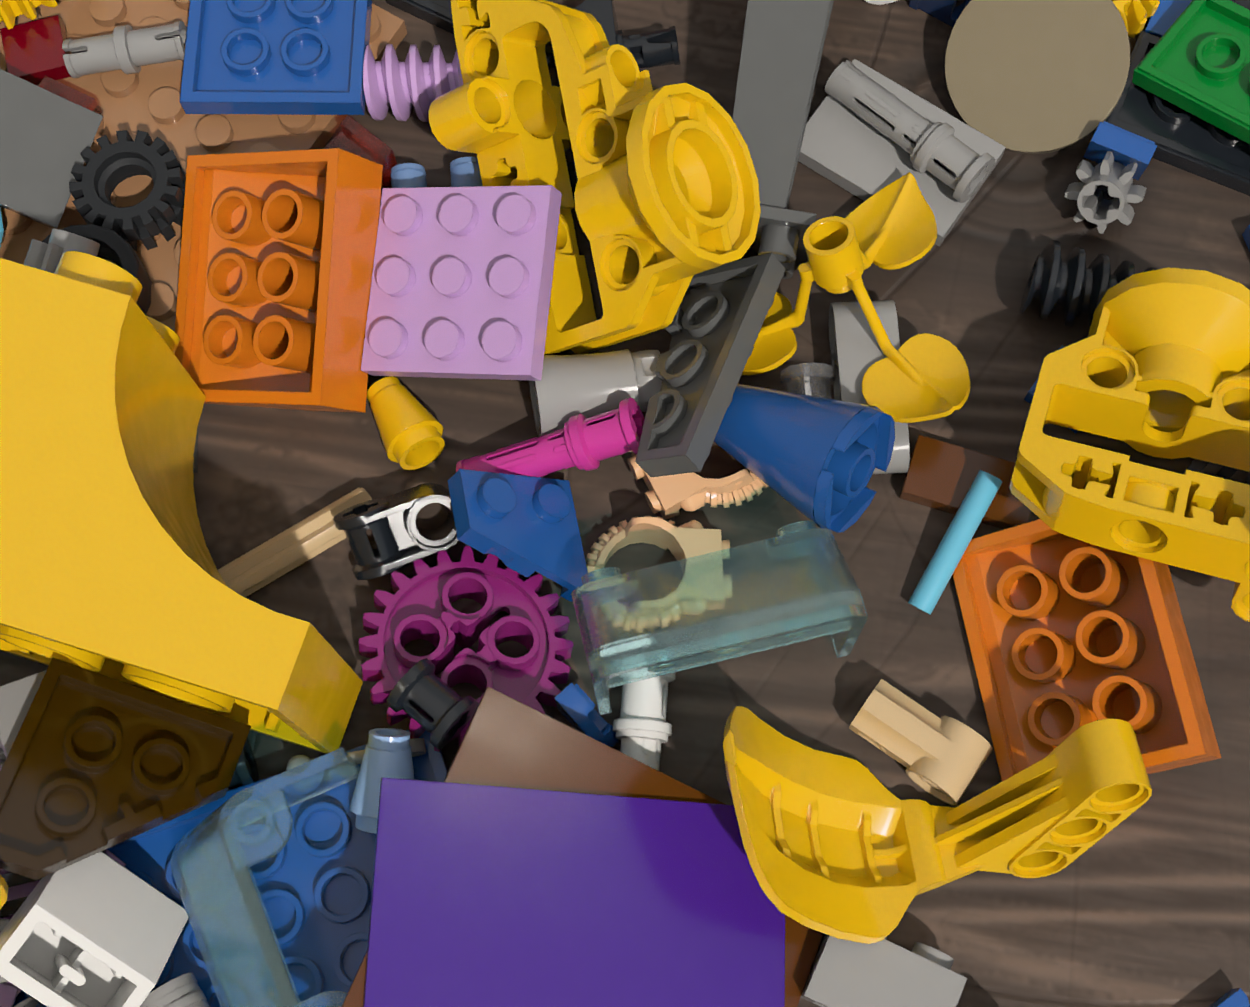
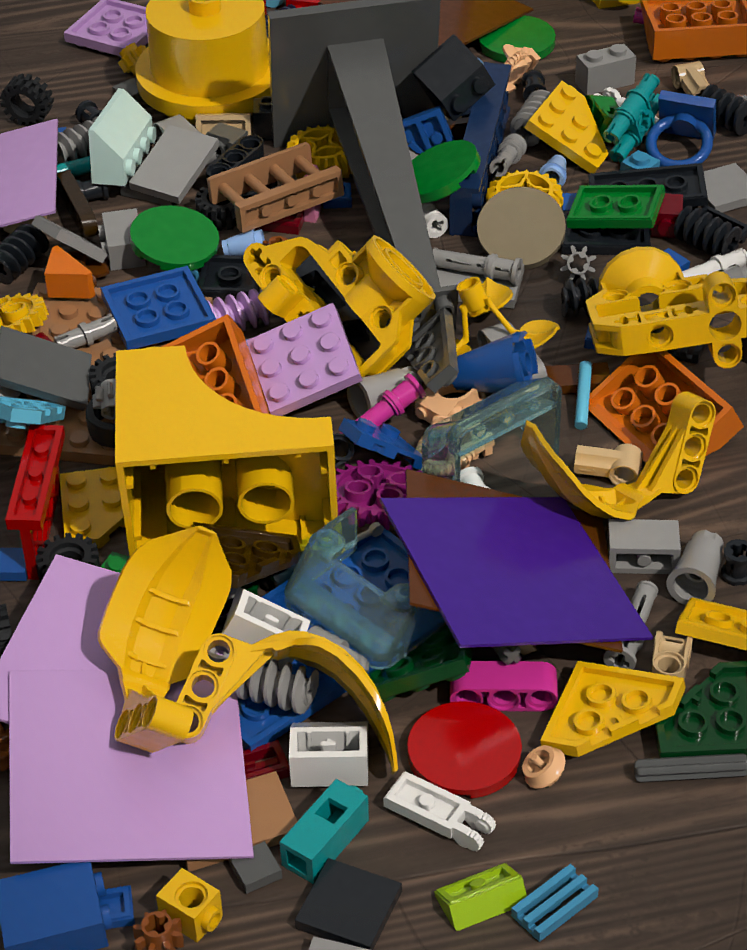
camera: 25 degrees left, 30 degrees down
(385, 756) = (373, 536): light blue cone -> none
(432, 703) = (371, 488): black bush -> none
(1124, 145) = (579, 243): blue tile -> none

